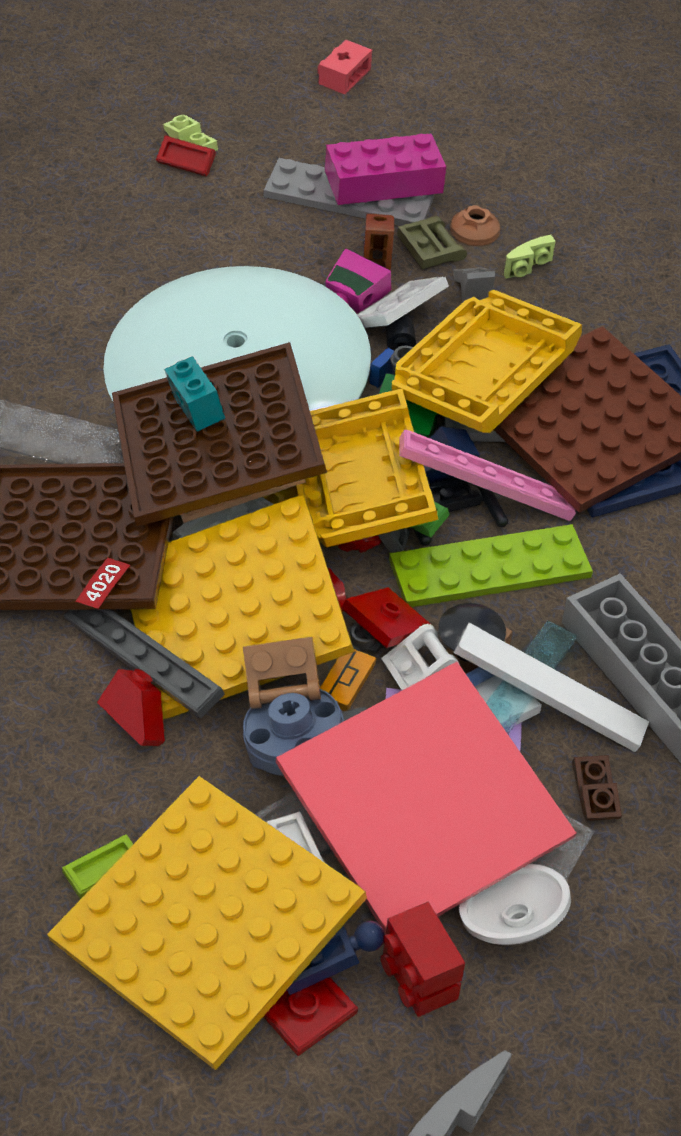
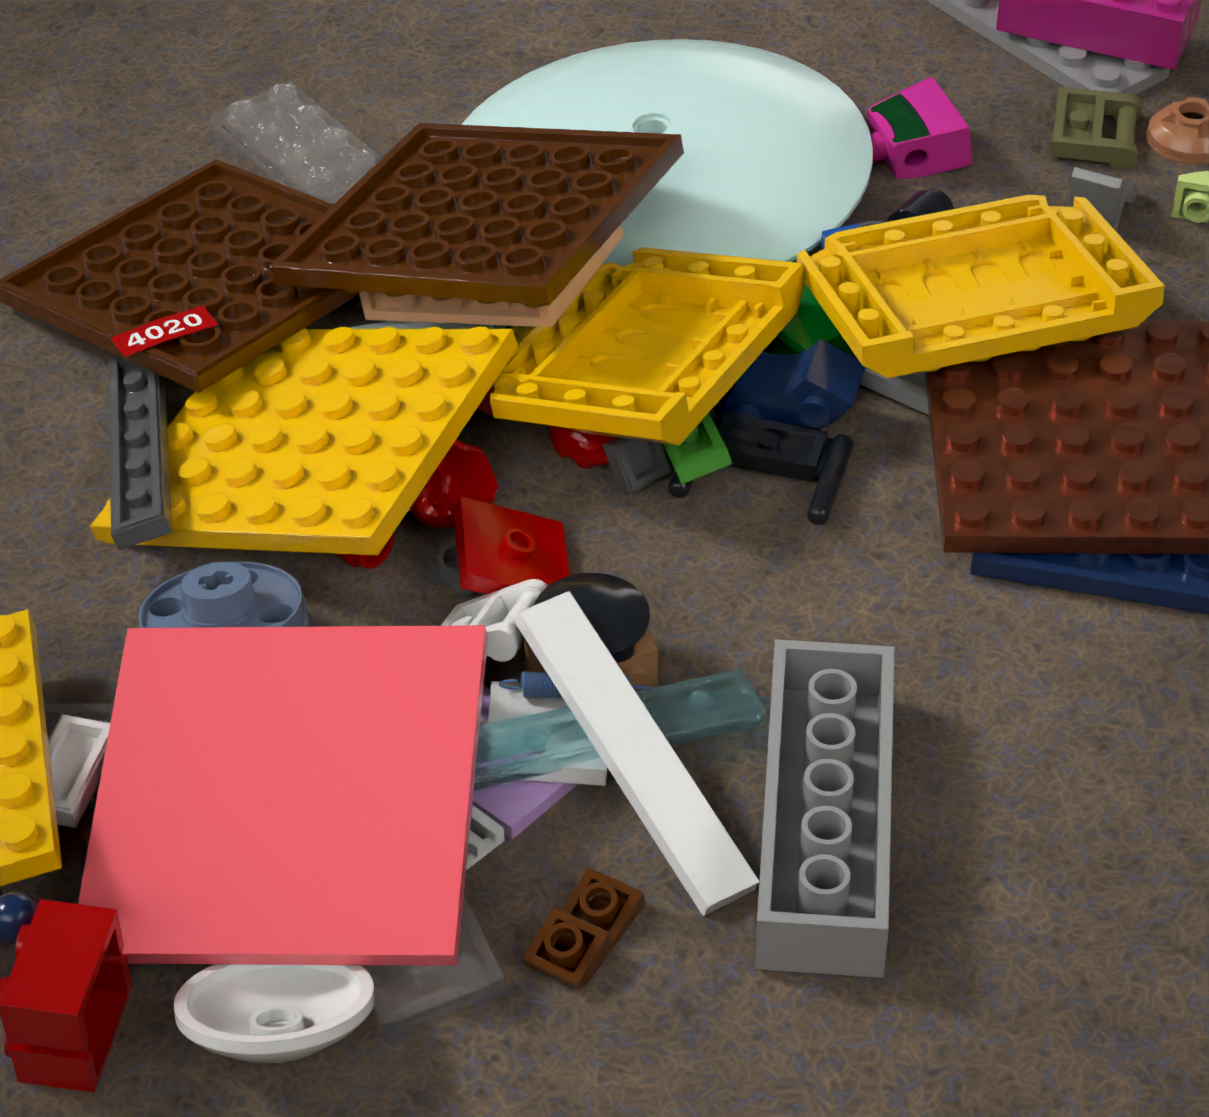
camera: 40 degrees right, 5 degrees down
(135, 706) = (63, 501): red slope -> none
(194, 393) = (482, 144): teal brick -> none
(281, 660) = (263, 516): medium nougat plate -> none
(348, 677) = (394, 601): light orange tile -> none
(379, 236) = (1000, 92): dark orange torso -> none
(401, 301) = (954, 175): white tile -> none
(484, 474) = (826, 429): bright pink tile -> none
(490, 565) = (746, 565): lime plate -> none

